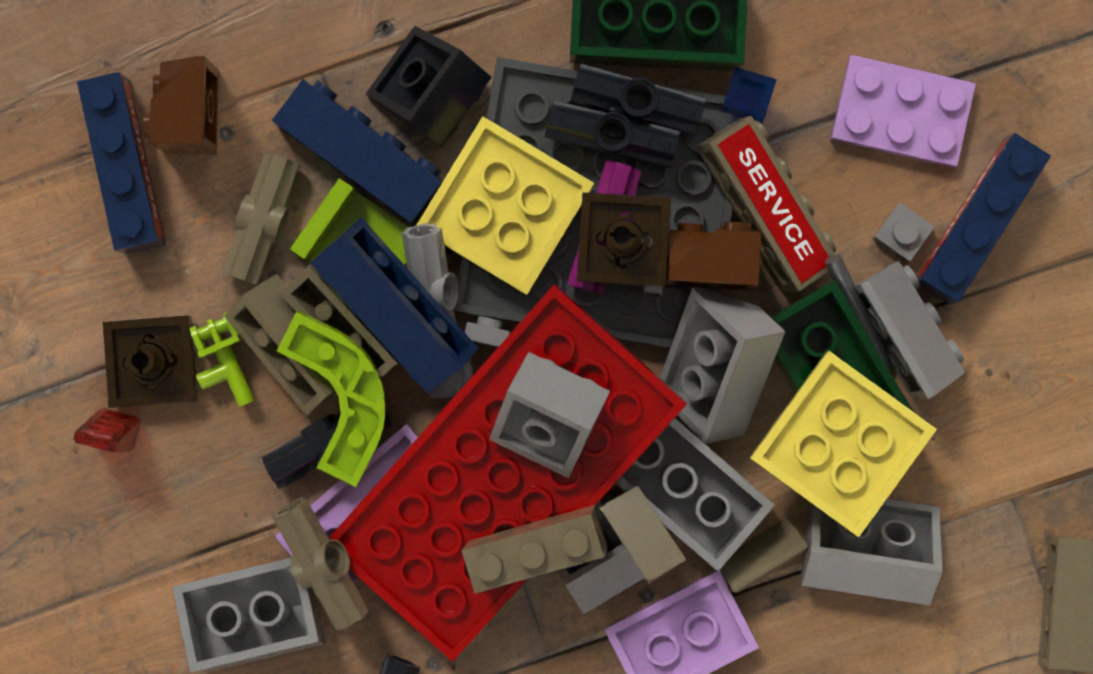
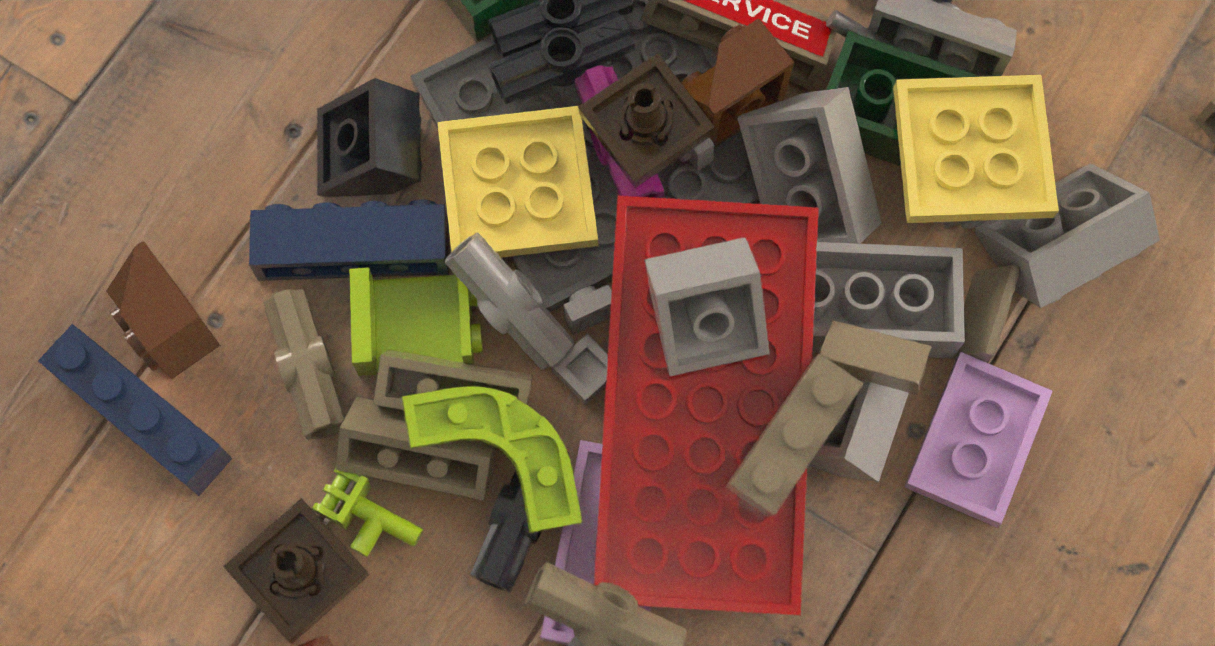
camera: 45 degrees left, 15 degrees down
(394, 306) = (488, 331): dark blue brick -> none

